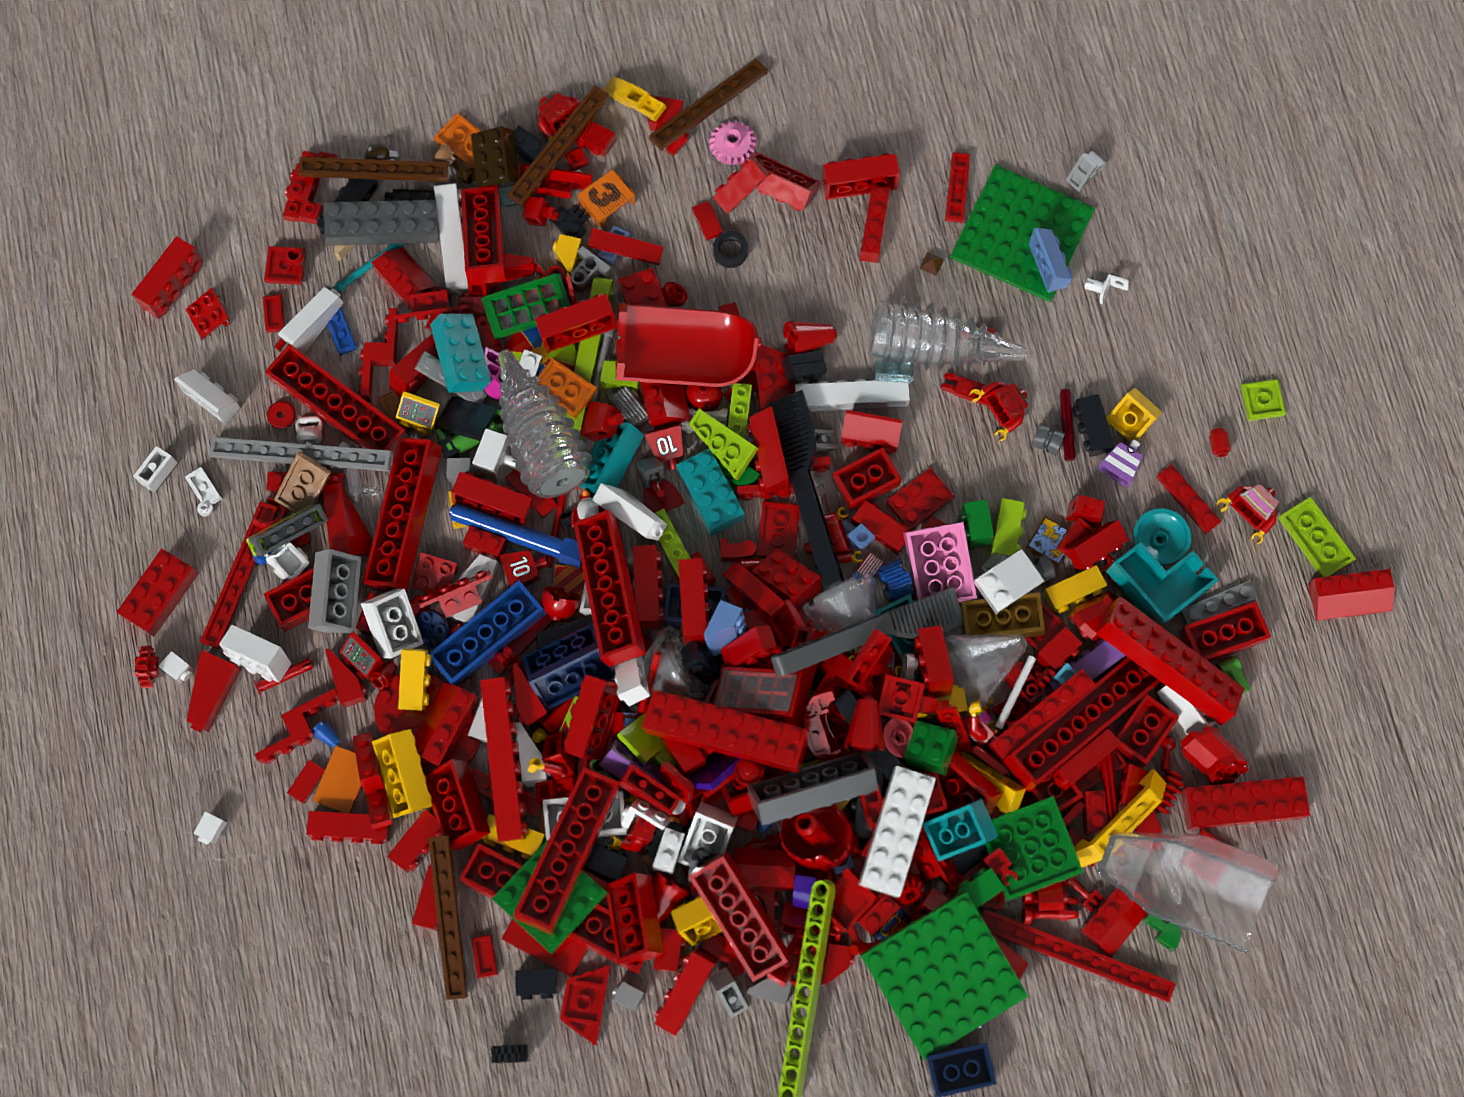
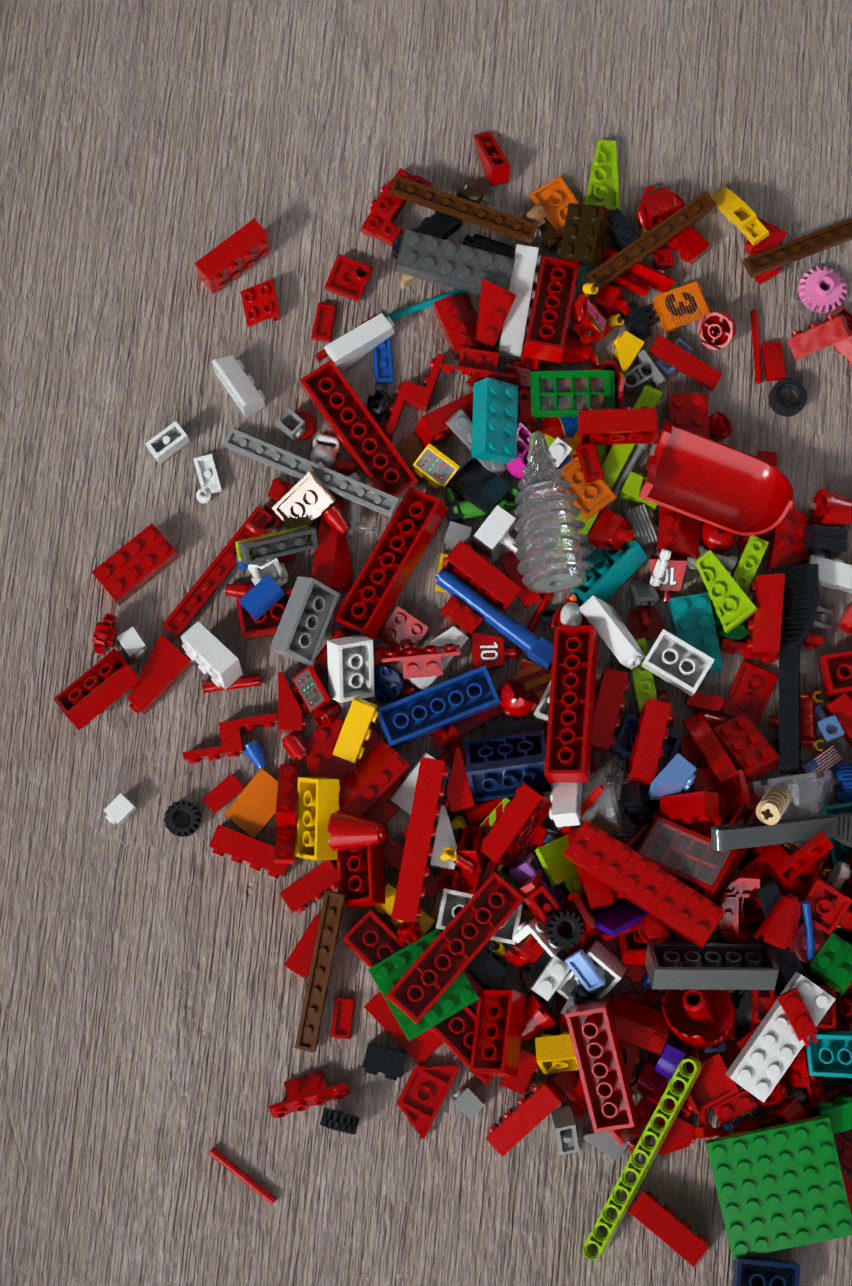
camera: 15 degrees right, 5 degrees up
(153, 721) = (96, 689): none -> red brick
(265, 585) = (238, 590): none -> red cone
(269, 416) = (291, 424): none -> light grey window
(273, 830) = (171, 813): none -> black tyre
(287, 583) = (261, 597): none -> blue brick
(333, 439) = (345, 467): none -> red tile
(338, 490) = (336, 519): none -> red cone
(348, 371) = (379, 403): none -> black hair
(362, 715) = (295, 746): none -> red brick
(388, 116) = (492, 159): none -> red slope
(429, 254) = (493, 311): none -> red wing
(438, 773) = (353, 831): none -> red cone
(472, 1038) = (308, 1092): none -> red bracket
(498, 101) = (603, 179): none -> lime wing
(521, 234) = (589, 320): none -> red torso
(521, 851) = (409, 932): none -> red gear
(561, 363) = (589, 462): none -> red tile
(621, 768) = (529, 884): none -> red tile
(644, 207) = (716, 330): none -> red cylinder
(656, 452) = (660, 567): none -> white axle
(656, 807) = (555, 920): none -> black tyre
(687, 211) = (756, 347): none -> red bar
(698, 520) = (677, 662): none -> white brick
(698, 832) = (585, 970): none -> light blue tile
(823, 619) = (773, 805): none -> tan piece
(855, 1051) = (669, 1229): none -> red wedge
(893, 724) = (808, 930): none -> blue bar
(905, 805) = (798, 1016): none -> red hinge

